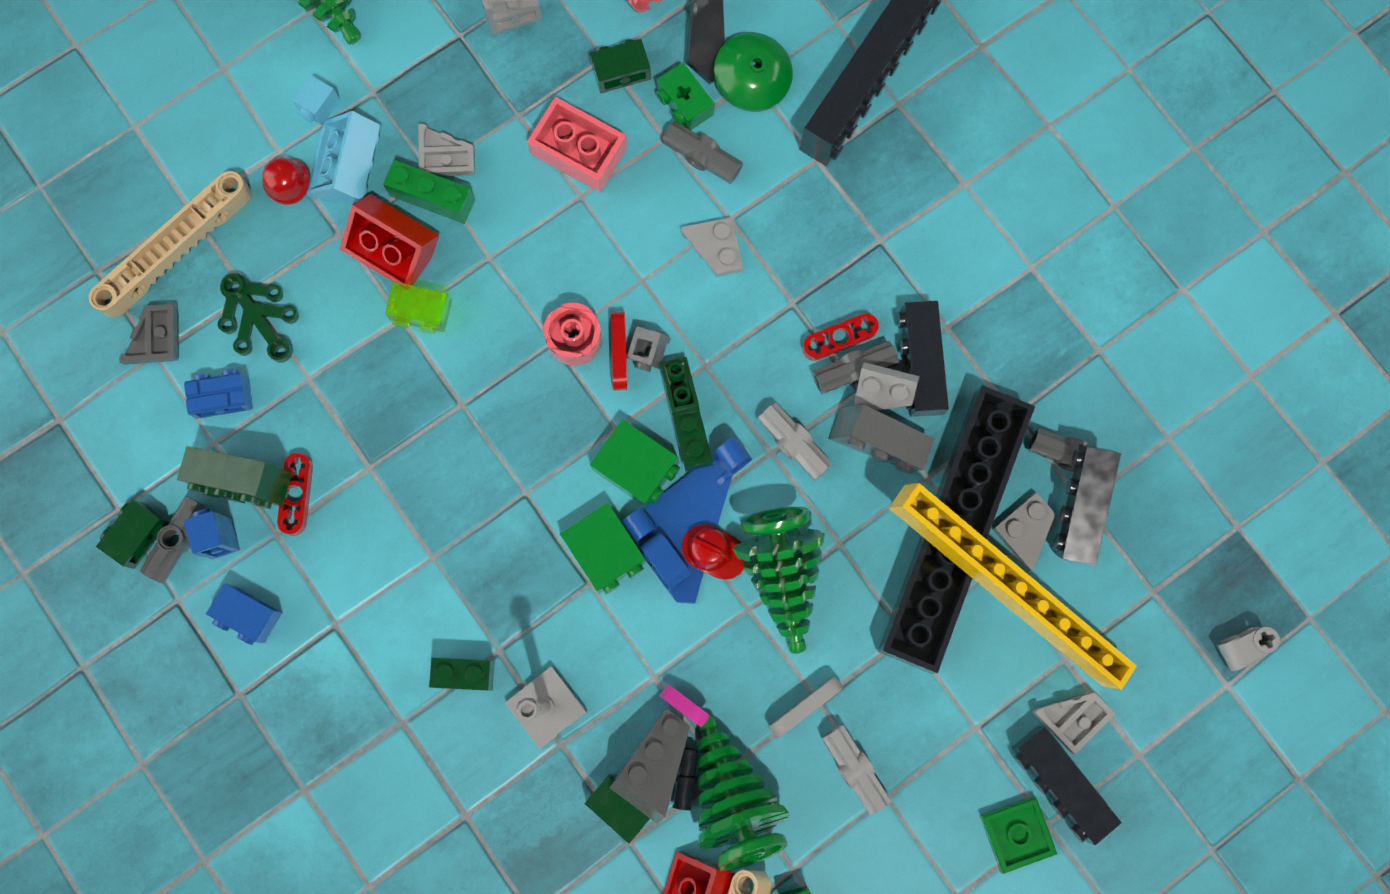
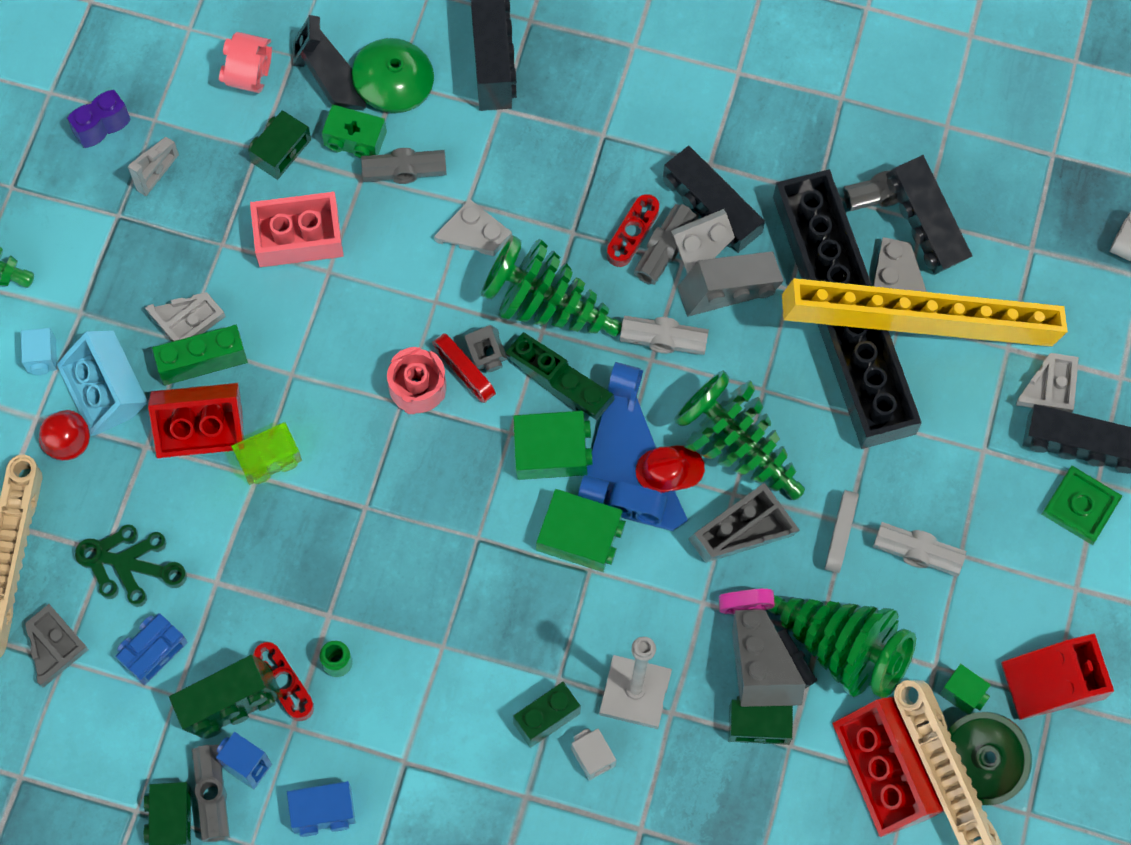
camera: 35 degrees left, 10 degrees down
(334, 504) = (335, 650): none -> green brick
(473, 731) = (593, 753): none -> light grey brick
(723, 331) = (537, 286): none -> green plant
(730, 644) = (744, 526): none -> dark grey wedge

